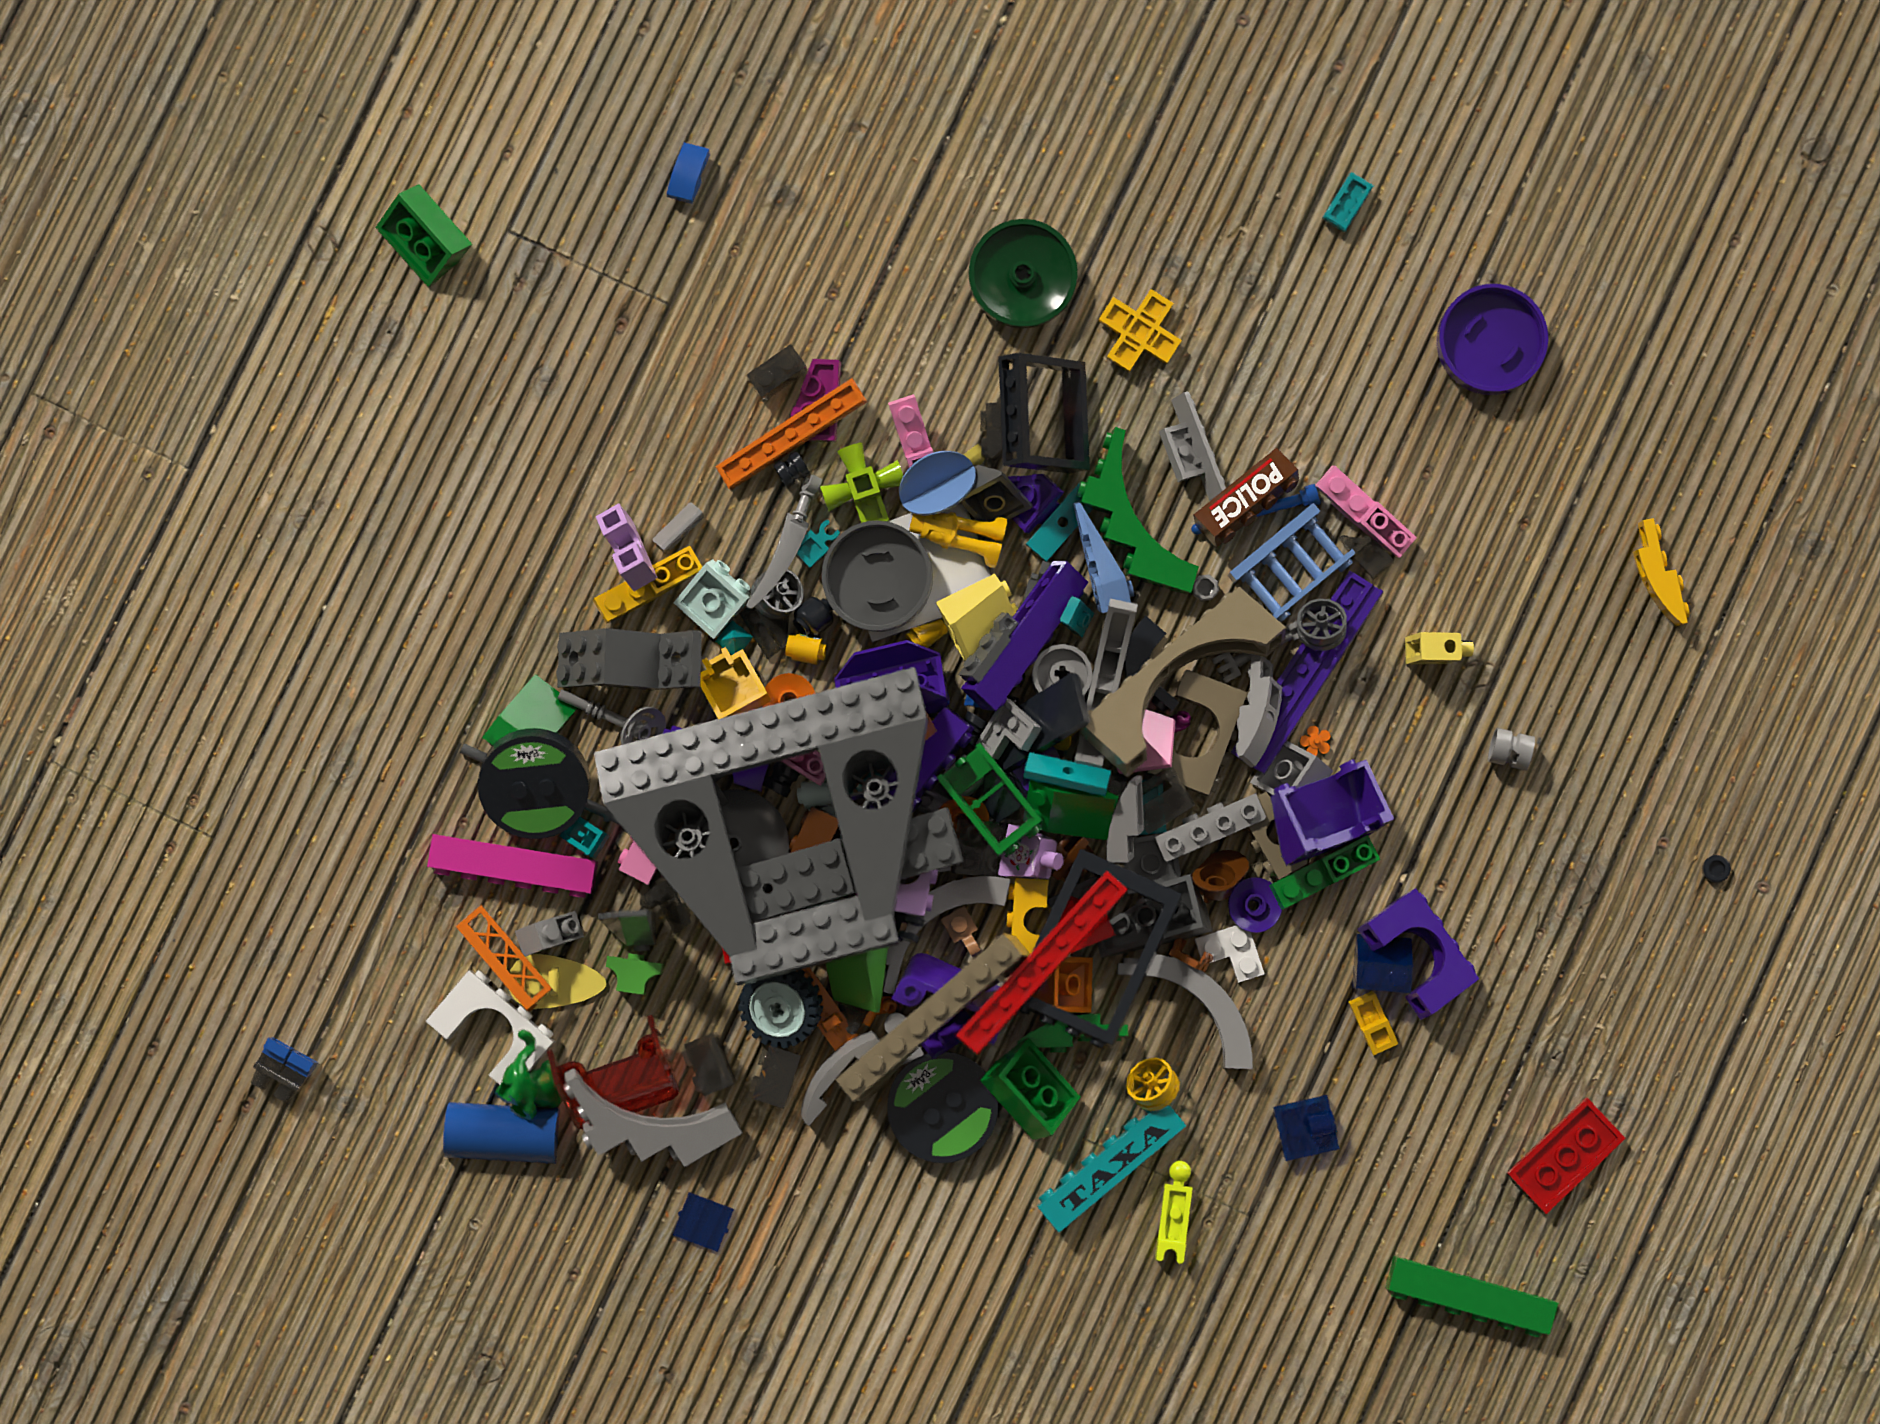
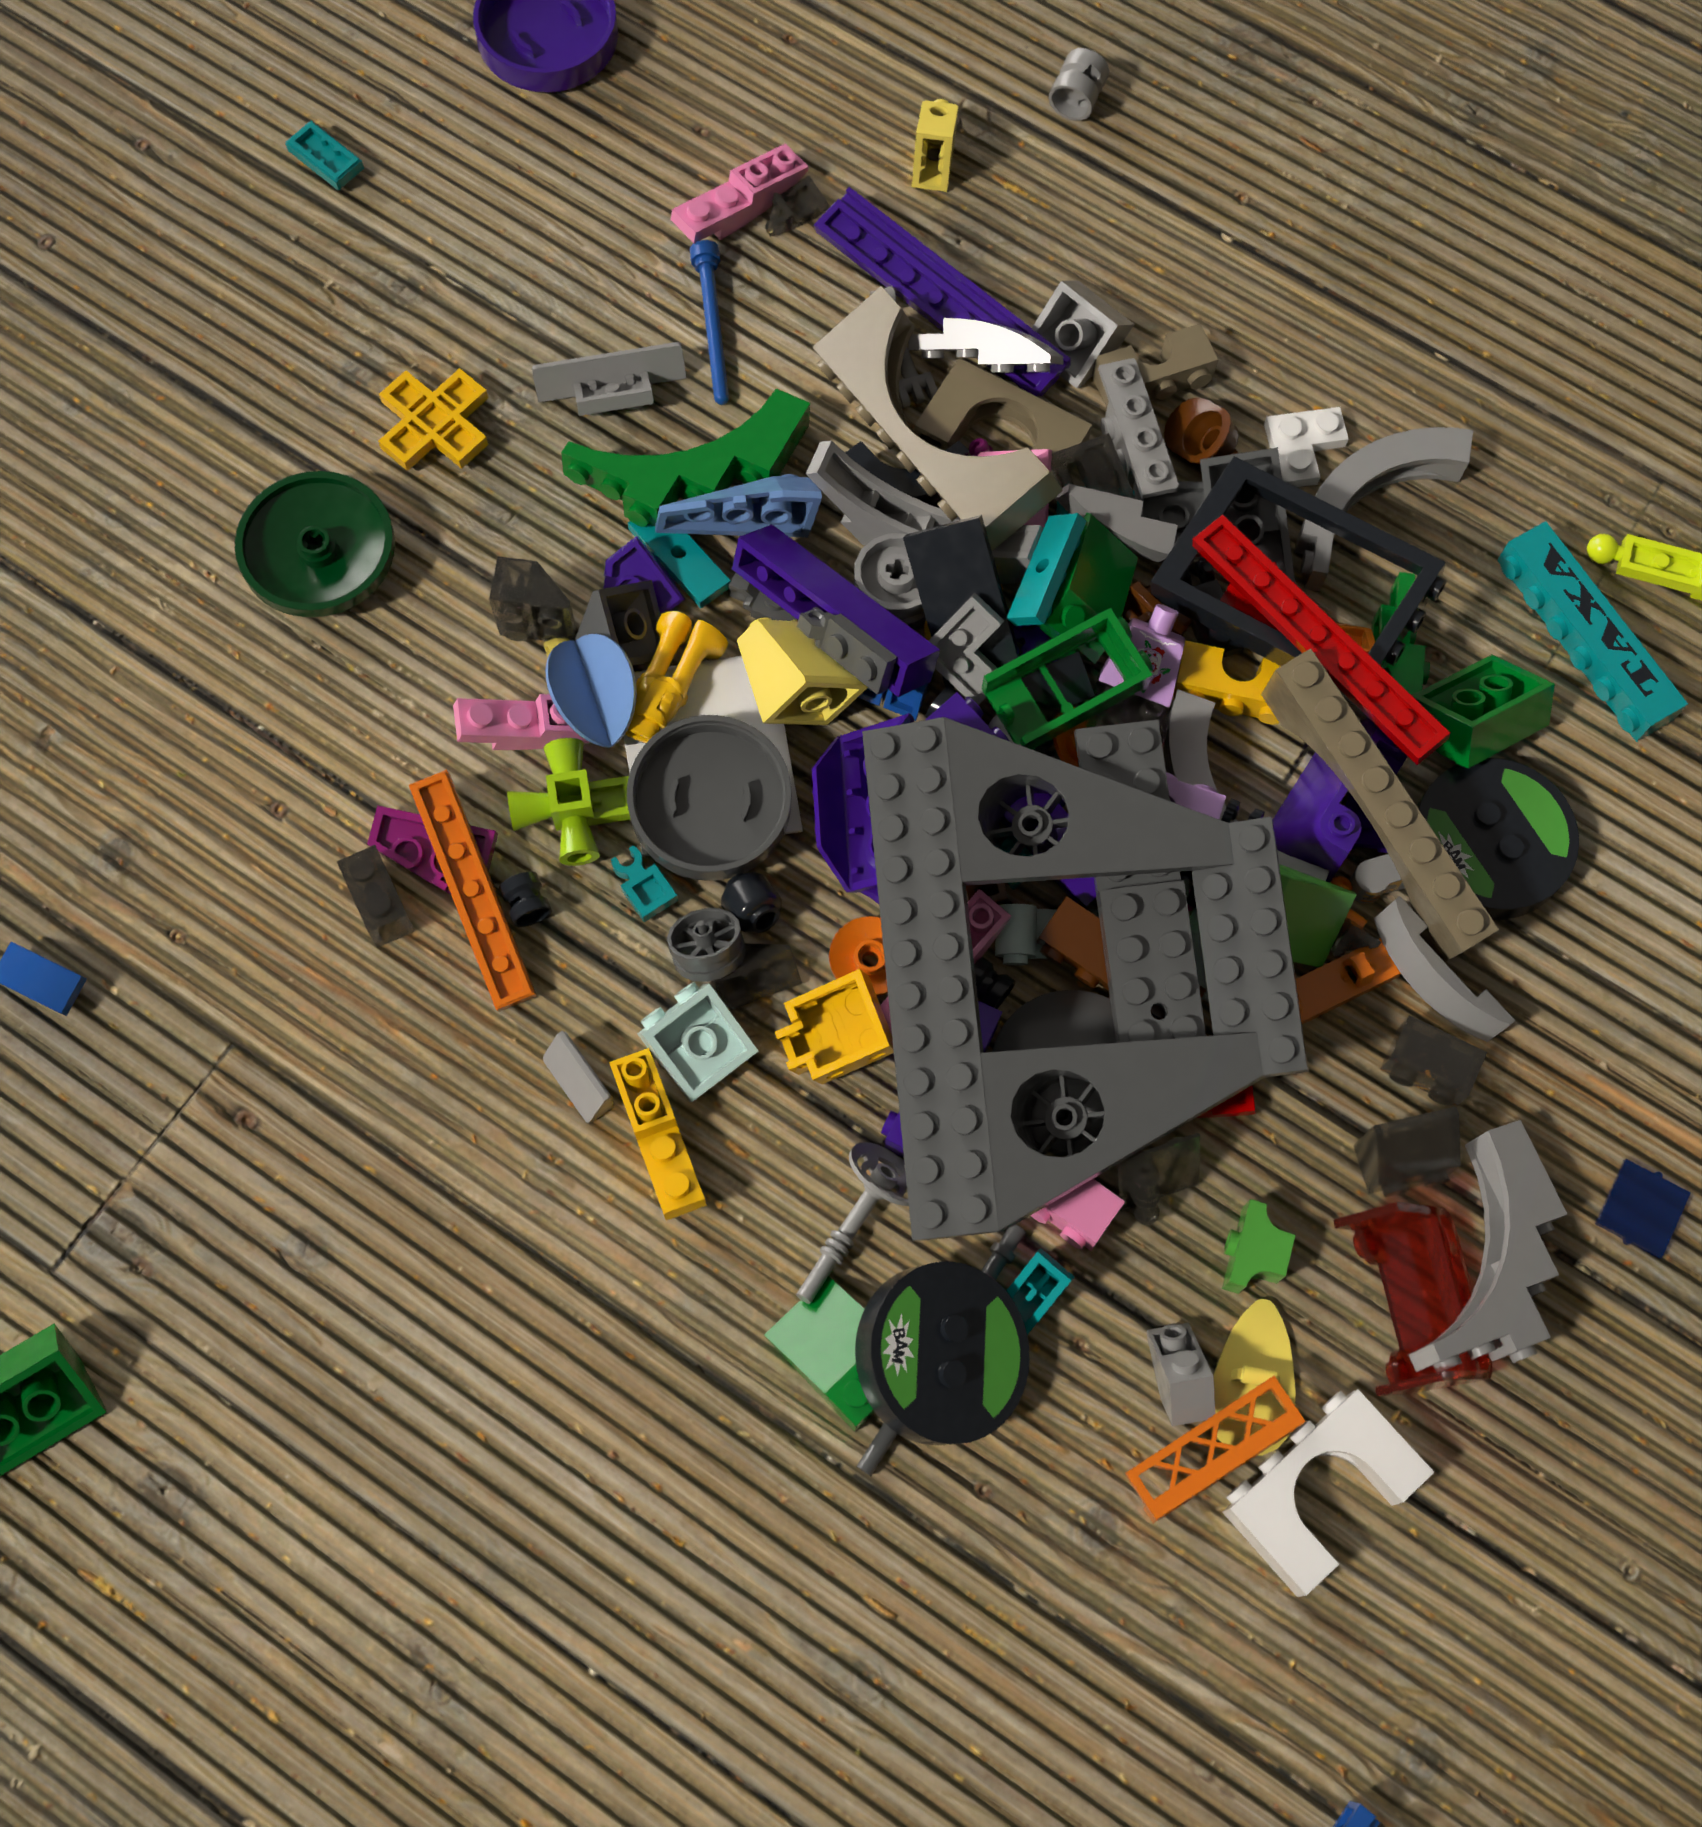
camera: 80 degrees left, 15 degrees down
(499, 1134) = (1489, 1500): blue brick -> none
(512, 864) = (1063, 1417): dark pink brick -> none
(525, 1089) = (1428, 1435): green animal -> none
(628, 548) = (606, 1144): lavender arch -> none
(629, 659) = (770, 1172): dark grey bracket -> none
(632, 927) = (1187, 1231): wedge -> none
(734, 638) = (762, 1023): teal slope -> none
(784, 1024) = (1342, 1031): wheel -> none
(790, 541) = (630, 910): light grey sword -> none
(805, 648) = (797, 920): yellow brick -> none
(927, 633) = (803, 752): yellow cone -> none
(961, 927) = (1237, 777): medium nougat plate -> none
(1016, 414) = (519, 533): black window -> none
(1077, 616) = (818, 544): teal plate -> none
(1156, 1095) = (1484, 555): yellow wheel -> none
(1177, 952) = (1321, 477): dark orange piece -> none
(1205, 588) = (807, 390): light grey tile -> none
(1246, 498) = (693, 321): reddish brown brick -> none
(1267, 908) = (1250, 399): dark purple dish -> none
(1287, 537) = (755, 289): medium blue fence -> none
(1306, 1127) = (1551, 388): clear blue plate -> none
(1315, 741) = (1030, 303): orange plant -> none
(1322, 623) = (869, 243): dark grey wheel -> none
(1324, 872) = (1208, 302): green slope -> none
(1328, 812) = (1138, 279): dark purple windscreen -> none
(1373, 1022) = (1419, 296): yellow slope -> none
(1385, 968) = (1342, 268): clear blue slope -> none
(1451, 970) = (1362, 192): dark purple arch -> none
(1566, 1155) = (1604, 111): red plate -> none

